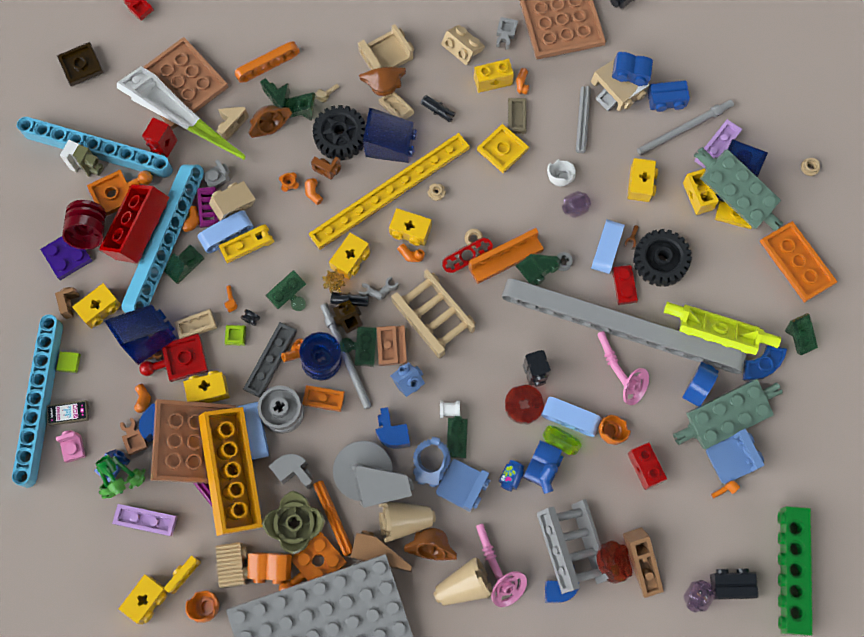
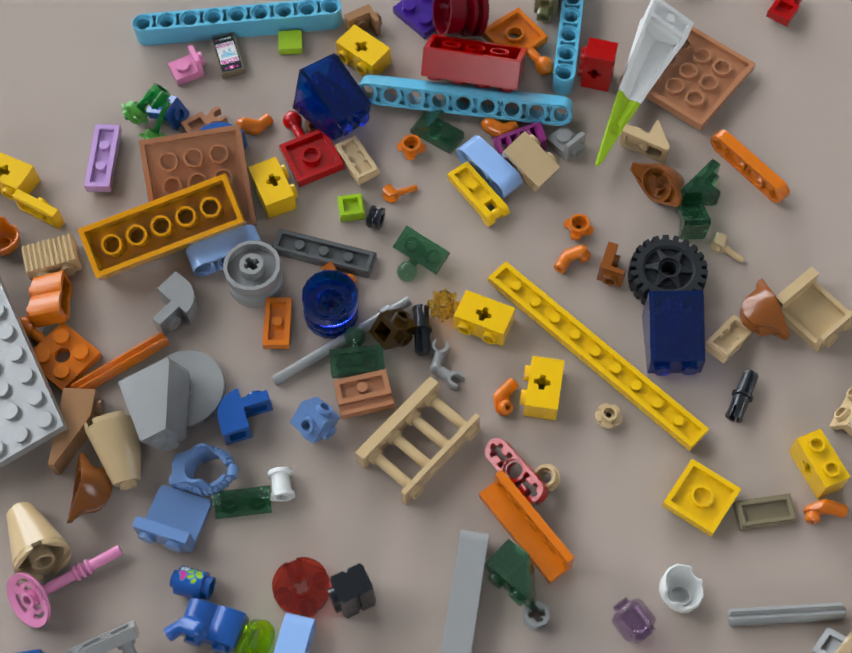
camera: 80 degrees right, 10 degrees down
(188, 284) = (411, 141): none -> orange plate
(278, 521) = (105, 299): olive brick -> none

